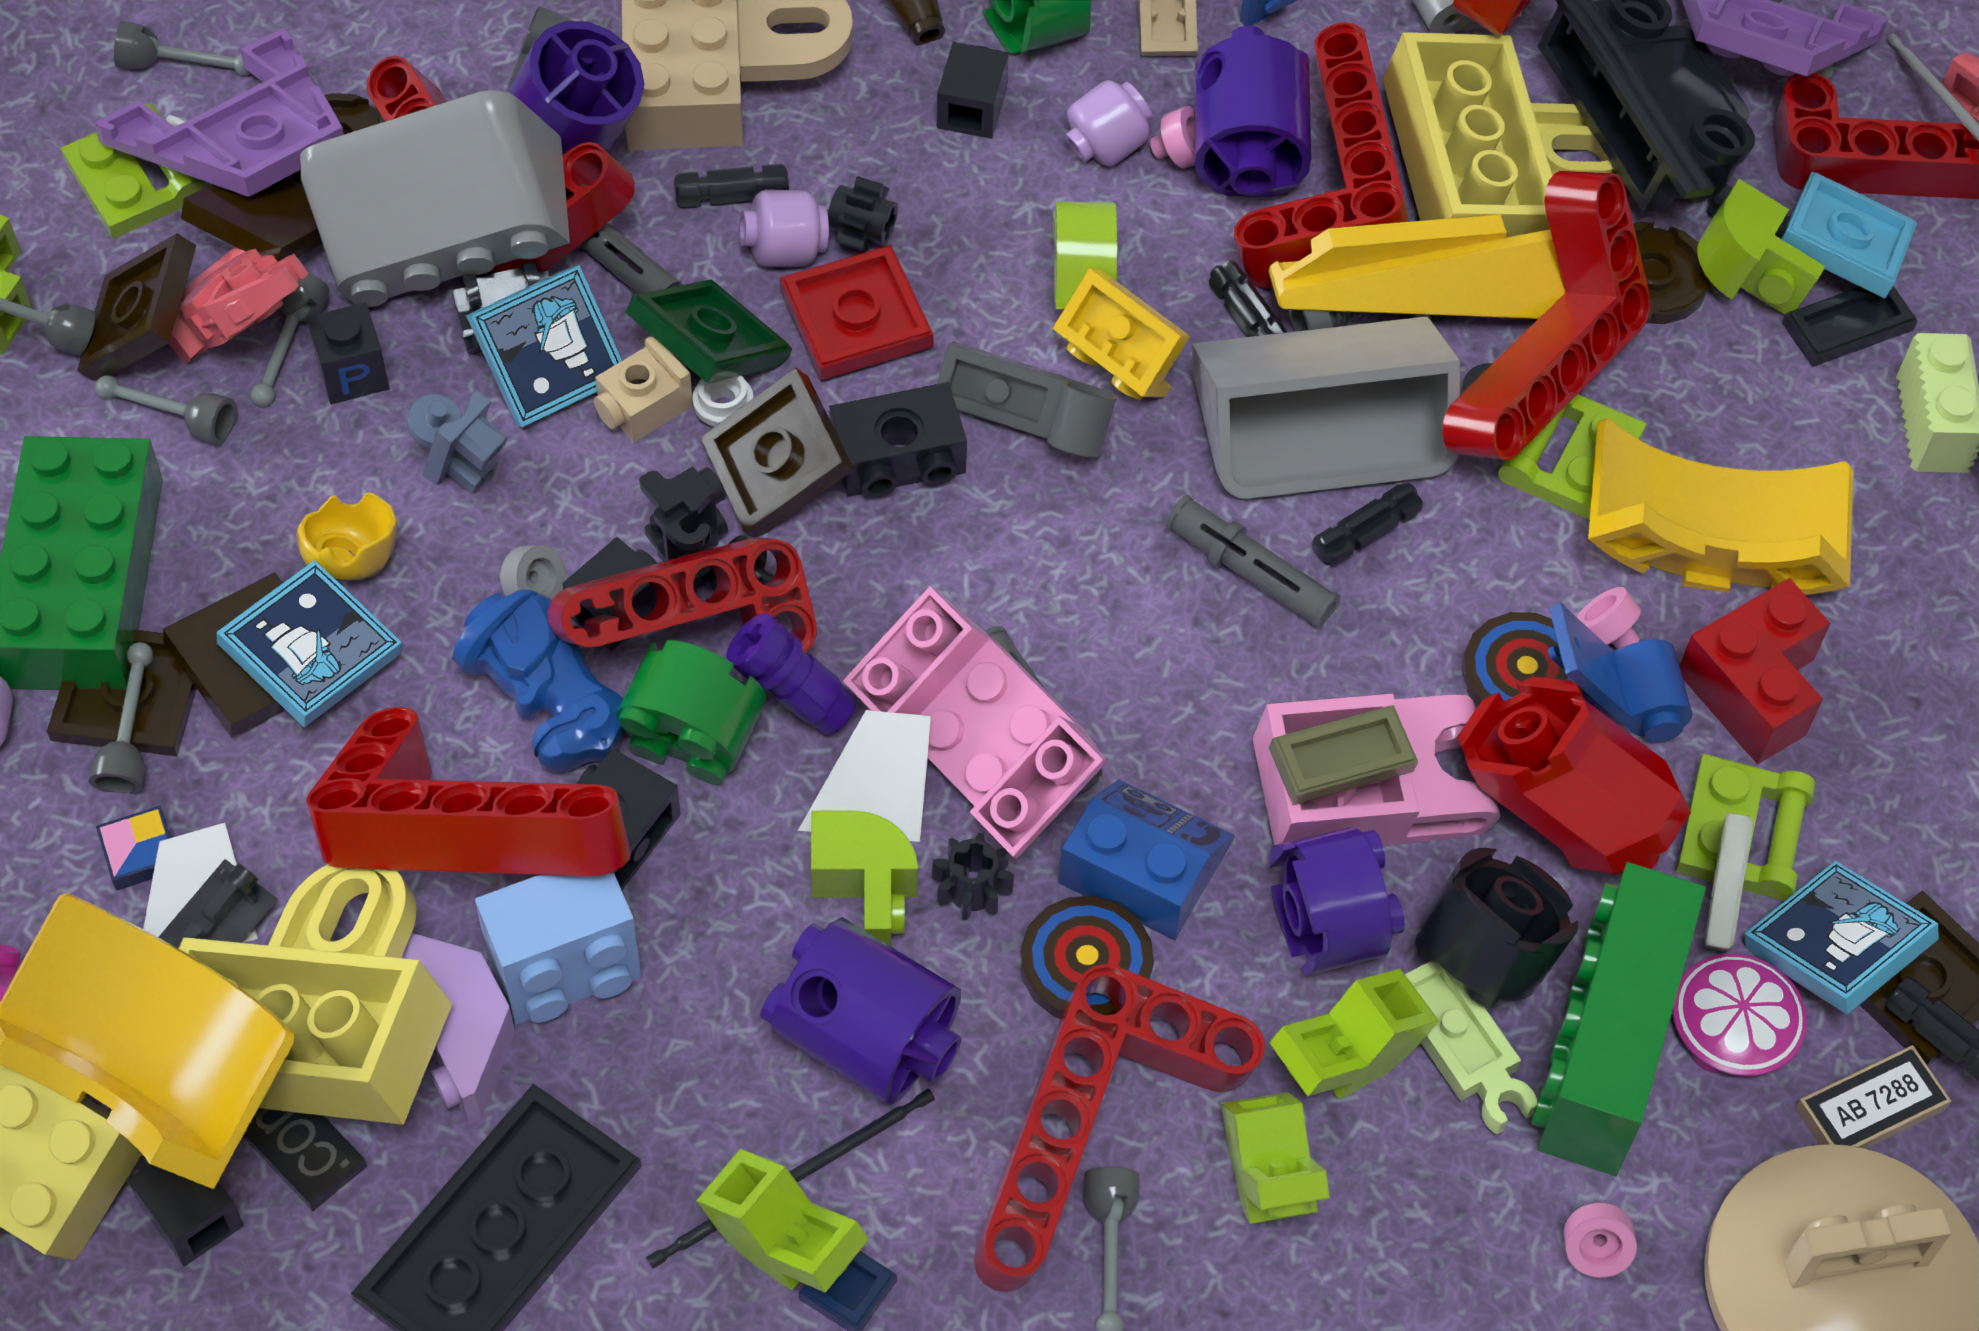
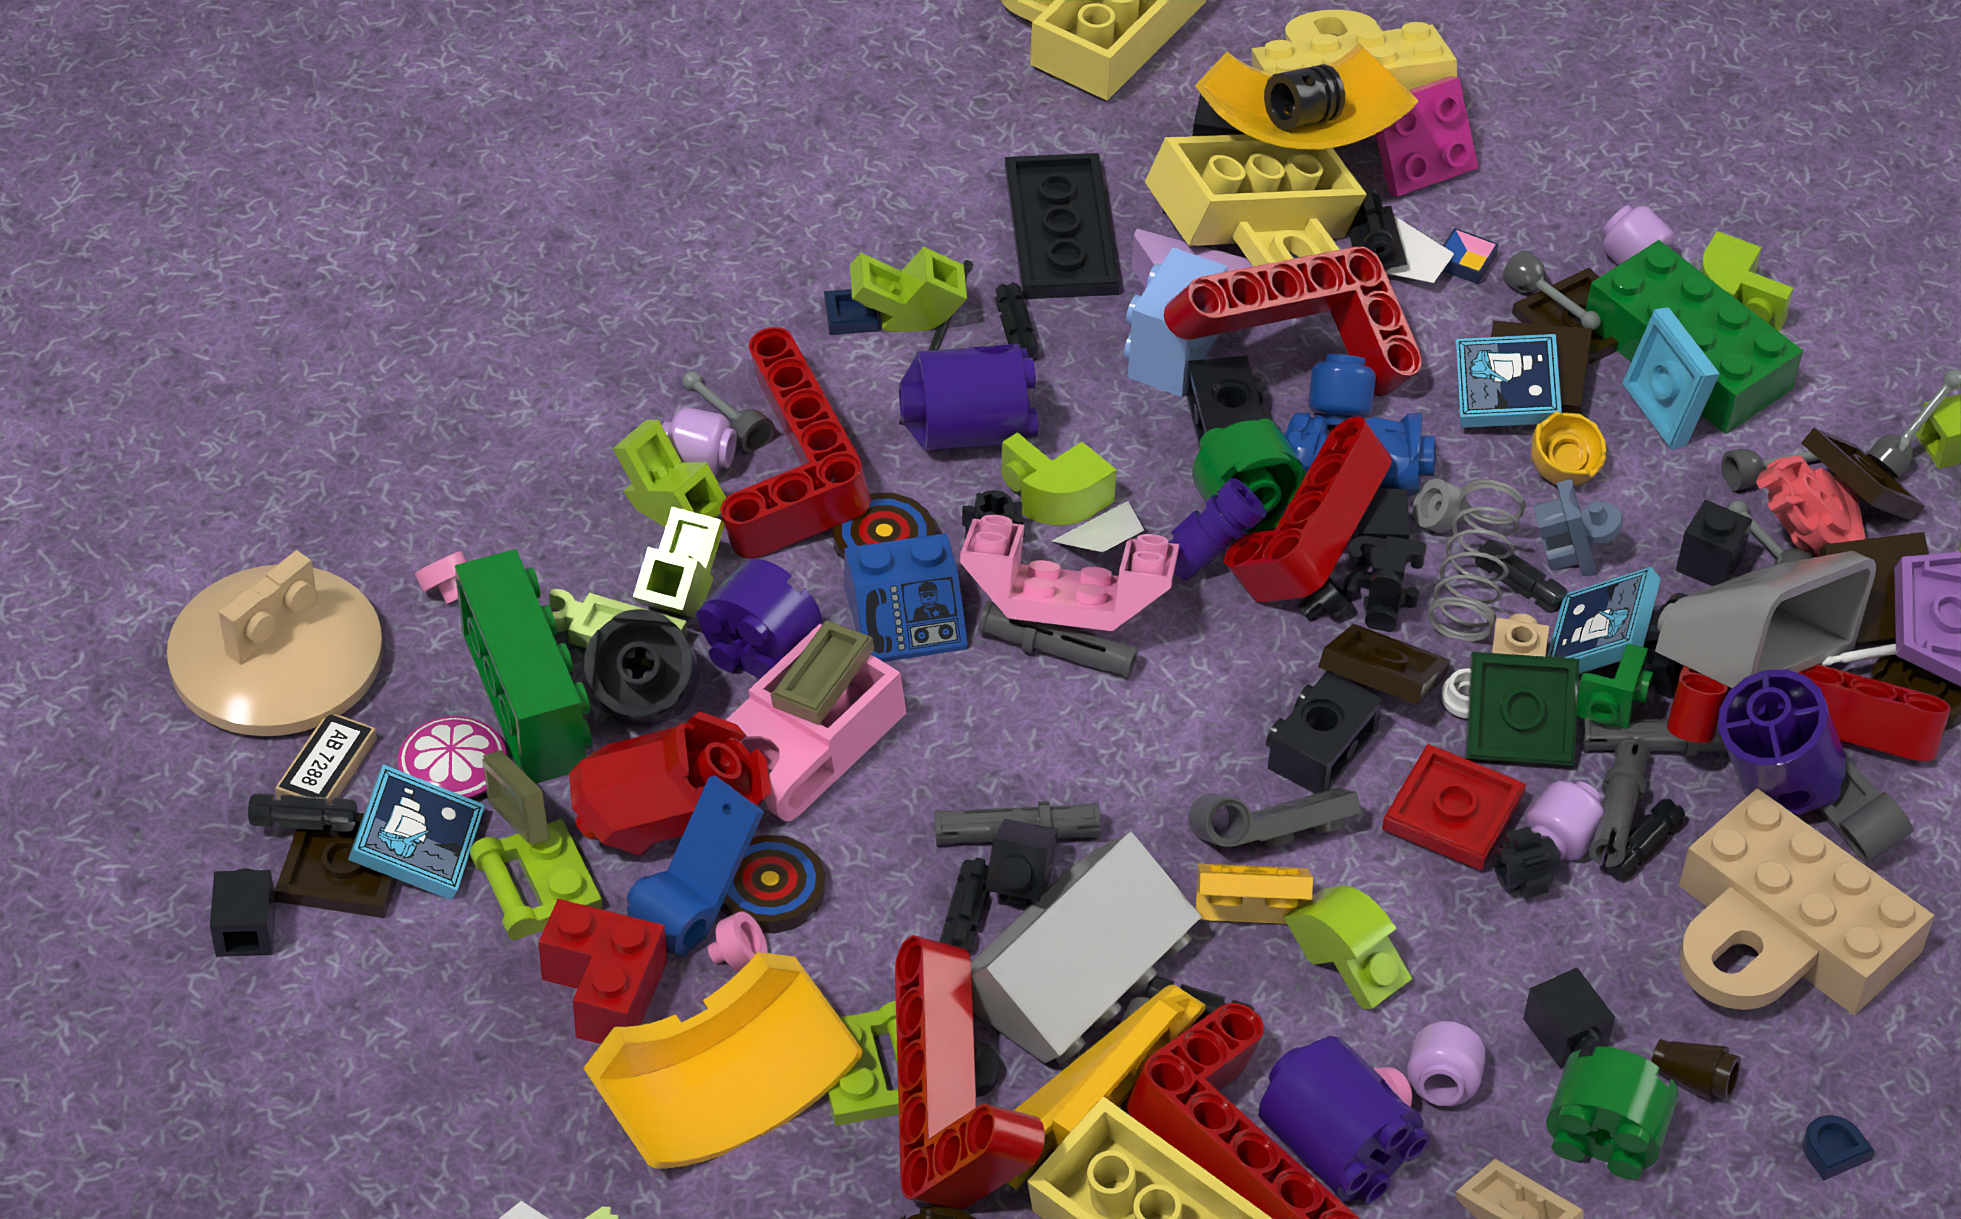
camera: 140 degrees right, 10 degrees down
(138, 1032) = (1307, 94): none -> black piece
(173, 511) = (1670, 378): none -> medium azure tile
(477, 749) = (1341, 388): none -> blue head
(519, 509) = (1463, 600): none -> light grey piece
(535, 474) = (1523, 577): none -> black axle
(622, 258) = (1615, 699): none -> green bracket
(689, 1124) = (1016, 318): none -> black axle
(715, 213) = (1623, 789): none -> dark grey pin
(1194, 1198) = (702, 438): none -> lavender head
(1296, 500) = (1021, 861): none -> black brick

